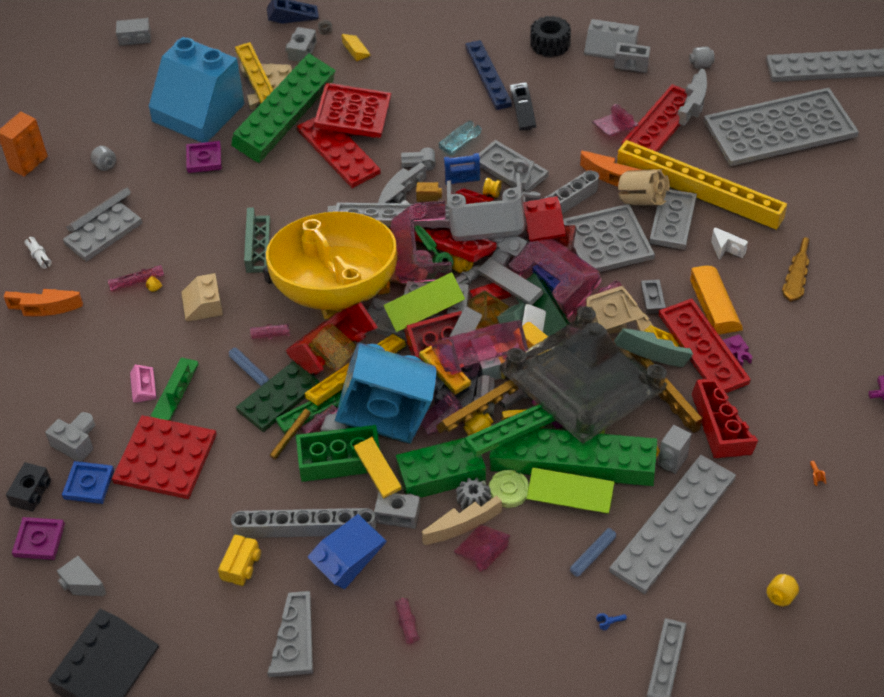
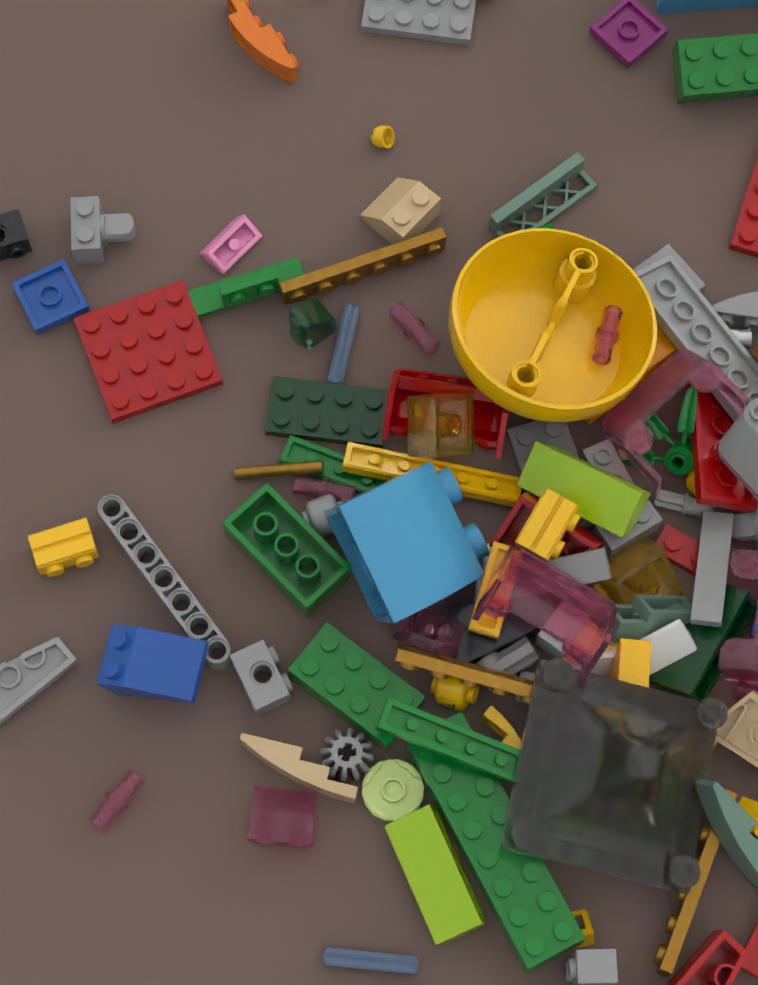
camera: 50 degrees right, 20 degrees up
(134, 278) = (383, 114): clear pink pin -> none
(214, 334) = (356, 268): none -> pearl gold plate
(224, 371) = (310, 322): none -> clear green slope
(355, 246) = (607, 335): none -> pin
(377, 467) = (287, 615): yellow tile -> none
(433, 319) = (547, 526): none -> yellow brick

